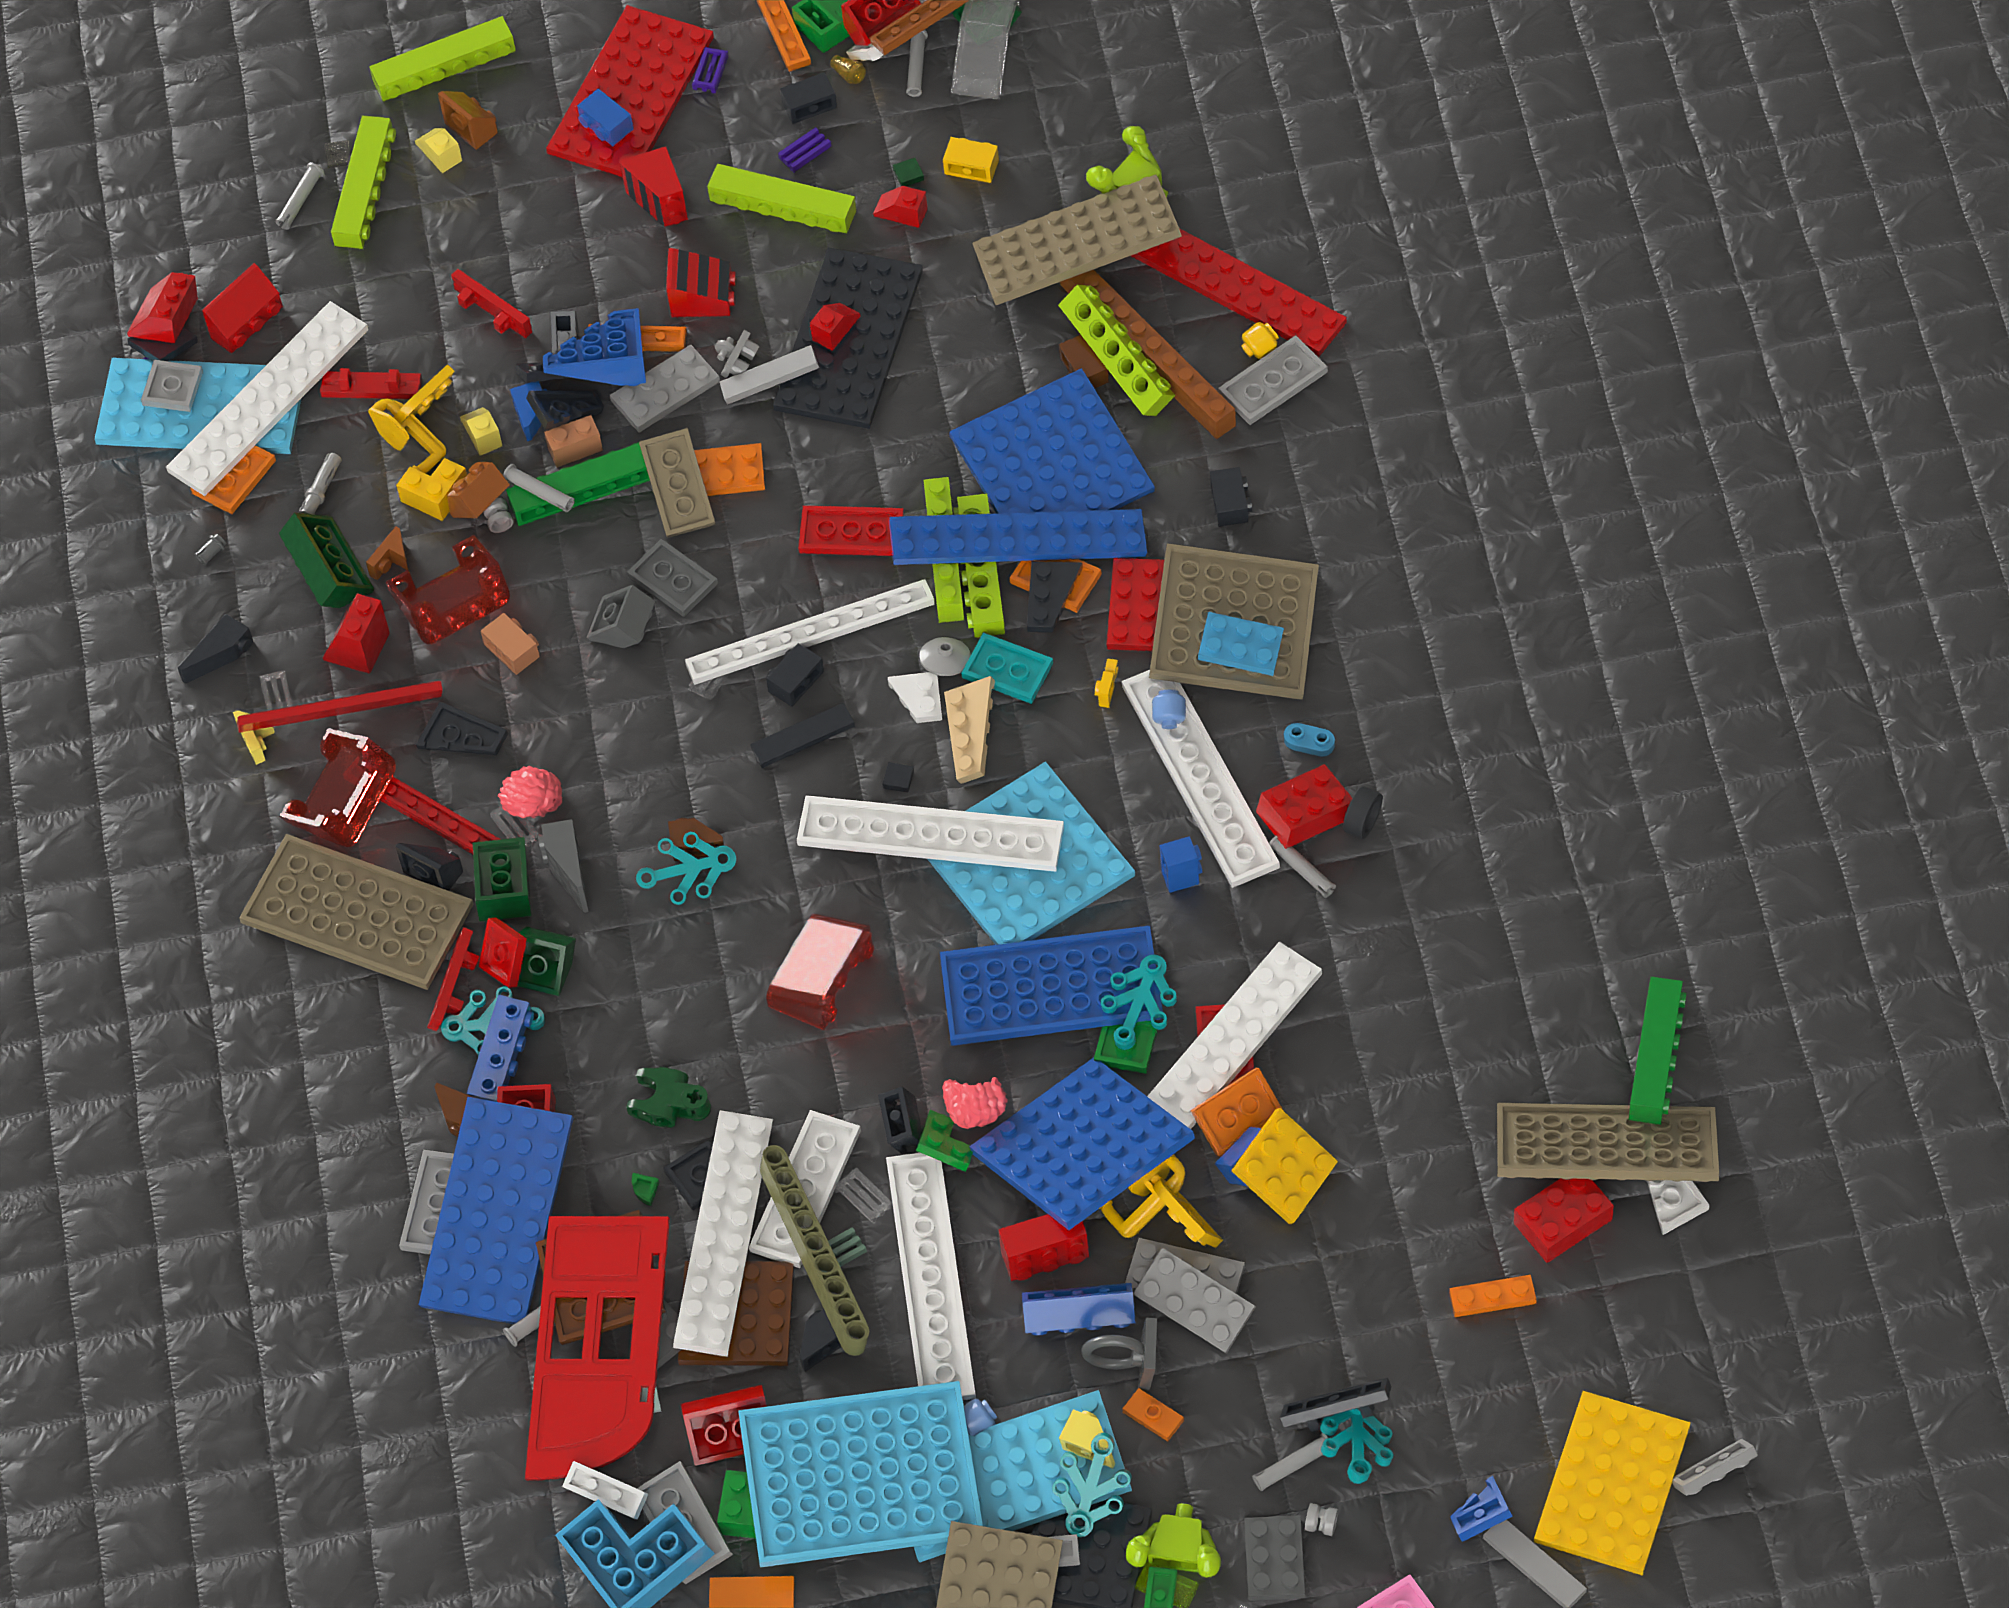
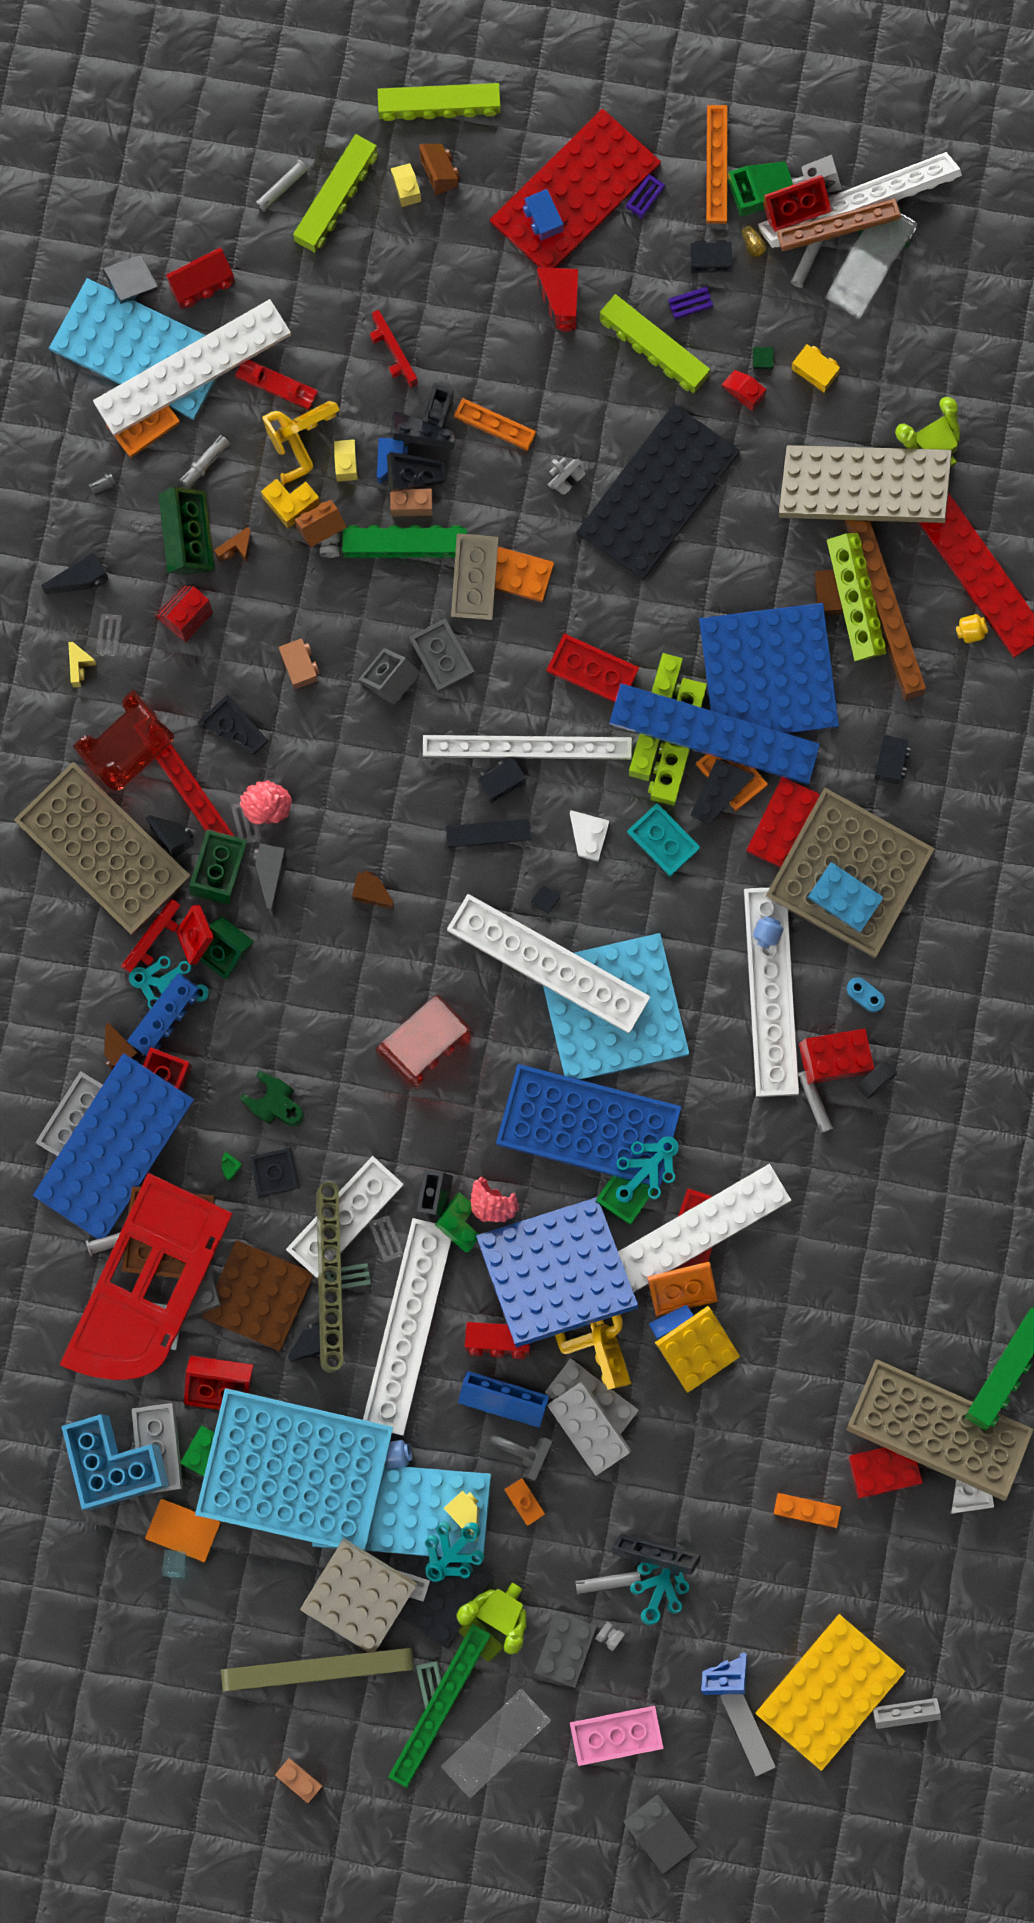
camera: 20 degrees right, 20 degrees up
(165, 309) = (141, 252): red slope -> none
(172, 385) = (122, 327): light grey plate -> none
(339, 706) = (149, 670): red tile -> none
(454, 597) = (269, 602): clear red windscreen -> none
(538, 488) = (366, 539): light grey pin -> none
(605, 353) = (462, 437): blue slope -> none
(606, 1489) = (111, 1402): white plate -> none
(666, 388) = (499, 480): light grey plate -> none
(690, 867) = (361, 915): teal plant -> none
(699, 285) = (560, 400): red slope -> none
(722, 1234) = (271, 1232): white plate -> none
(769, 374) = (582, 504): light grey tile -> none
(832, 324) = (649, 480): red slope -> none
(944, 656) = (618, 817): light grey dish -> none
(968, 726) = (615, 876): tan wing -> none
(1105, 687) = (730, 888): yellow plate -> none
(1180, 864) = (723, 1067): blue brick -> none
(1273, 380) = (968, 667): light grey plate -> none

